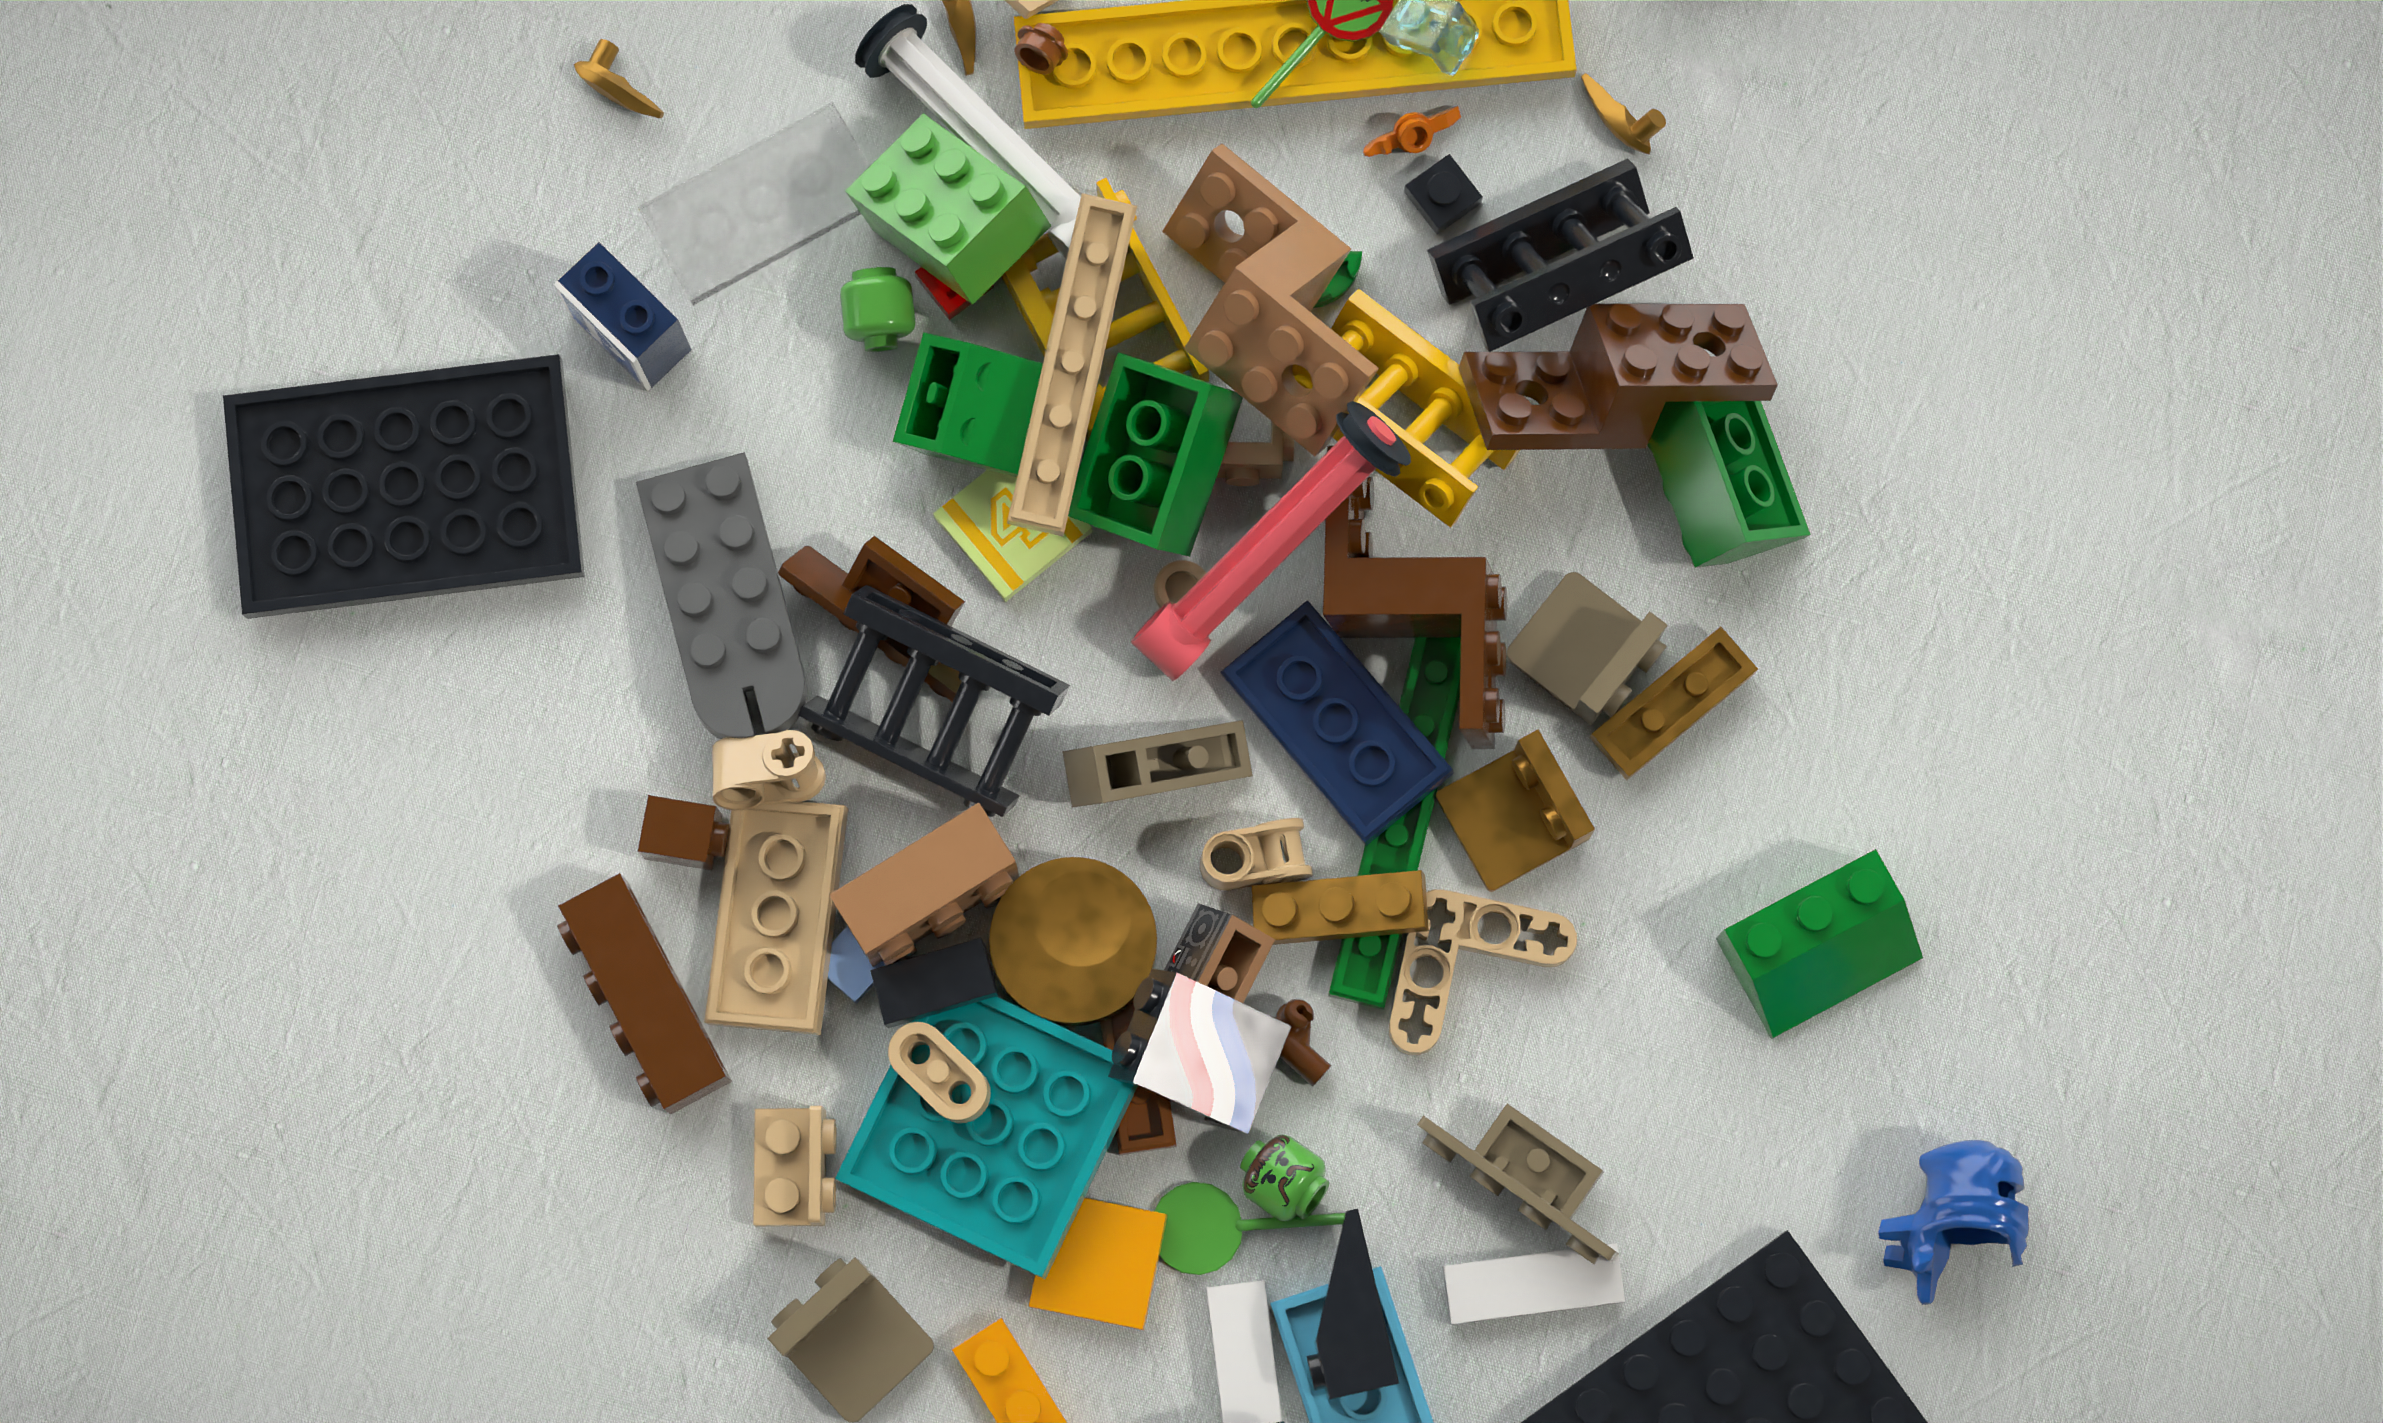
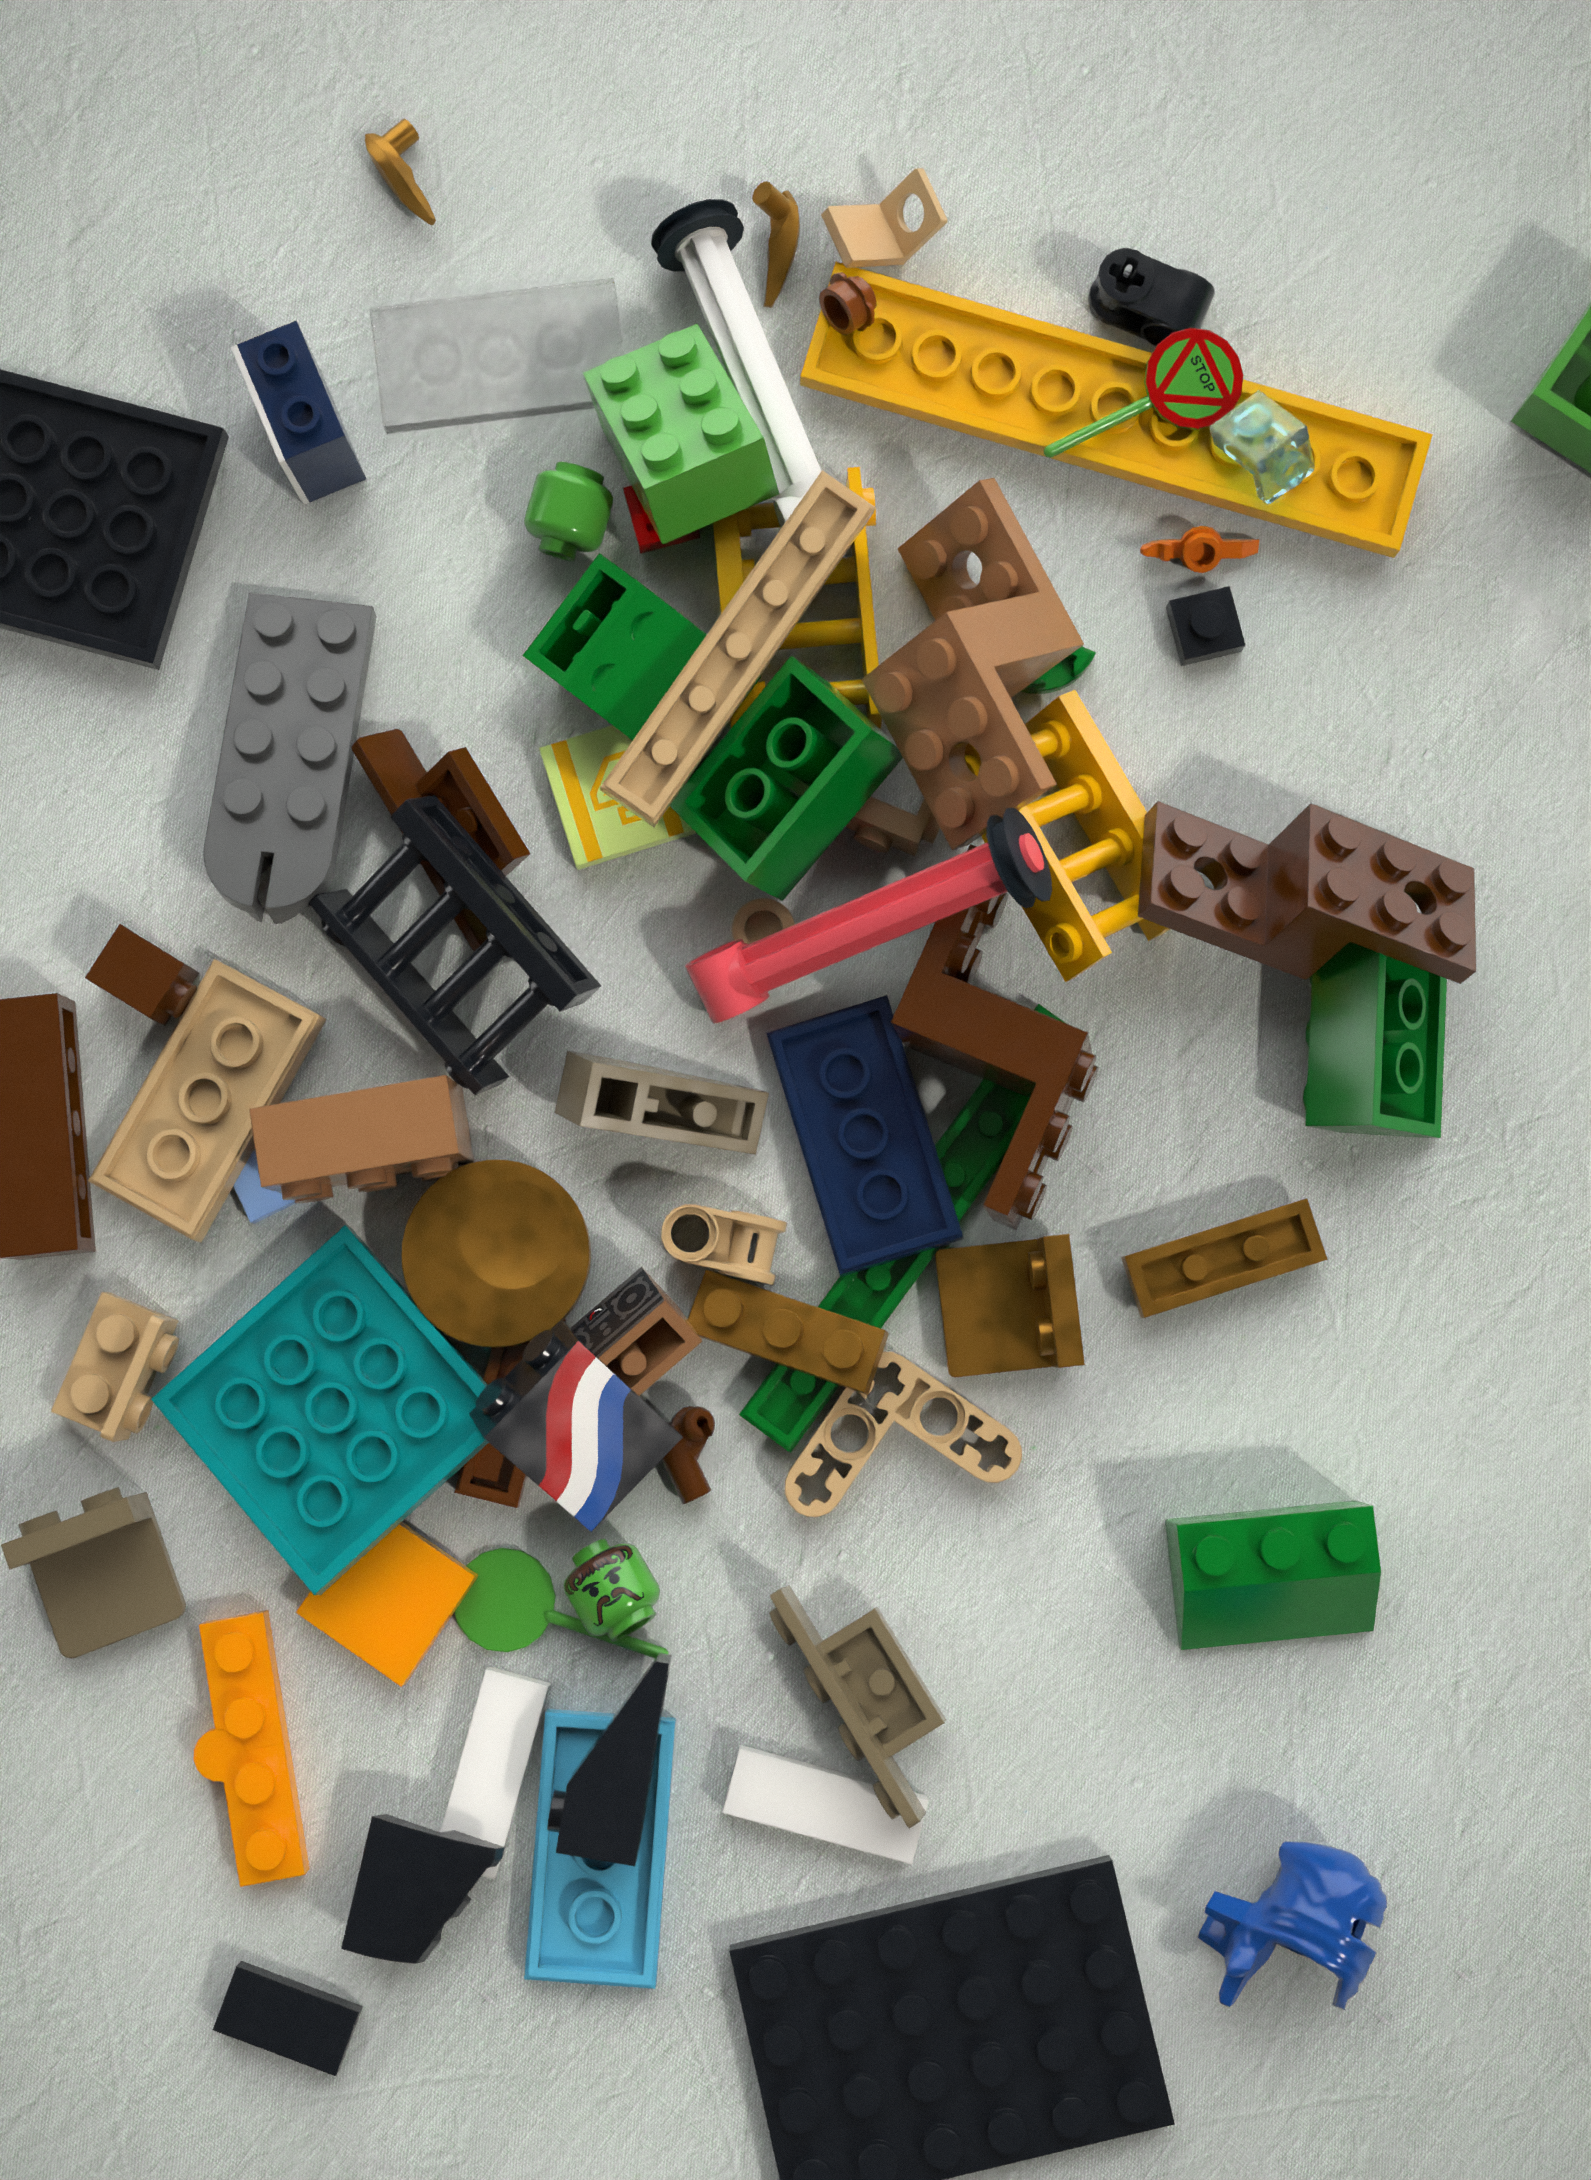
camera: 20 degrees right, 5 degrees up
(761, 769) = (252, 947): tan piece -> none
(934, 982) = (333, 1239): black tile -> none
(940, 1073) = (296, 1340): tan plate -> none
(1551, 227) = (1302, 706): black fence -> none
(1586, 647) = (1157, 1163): dark tan bracket -> none
(1620, 121) = (1422, 622): pearl gold bar -> none

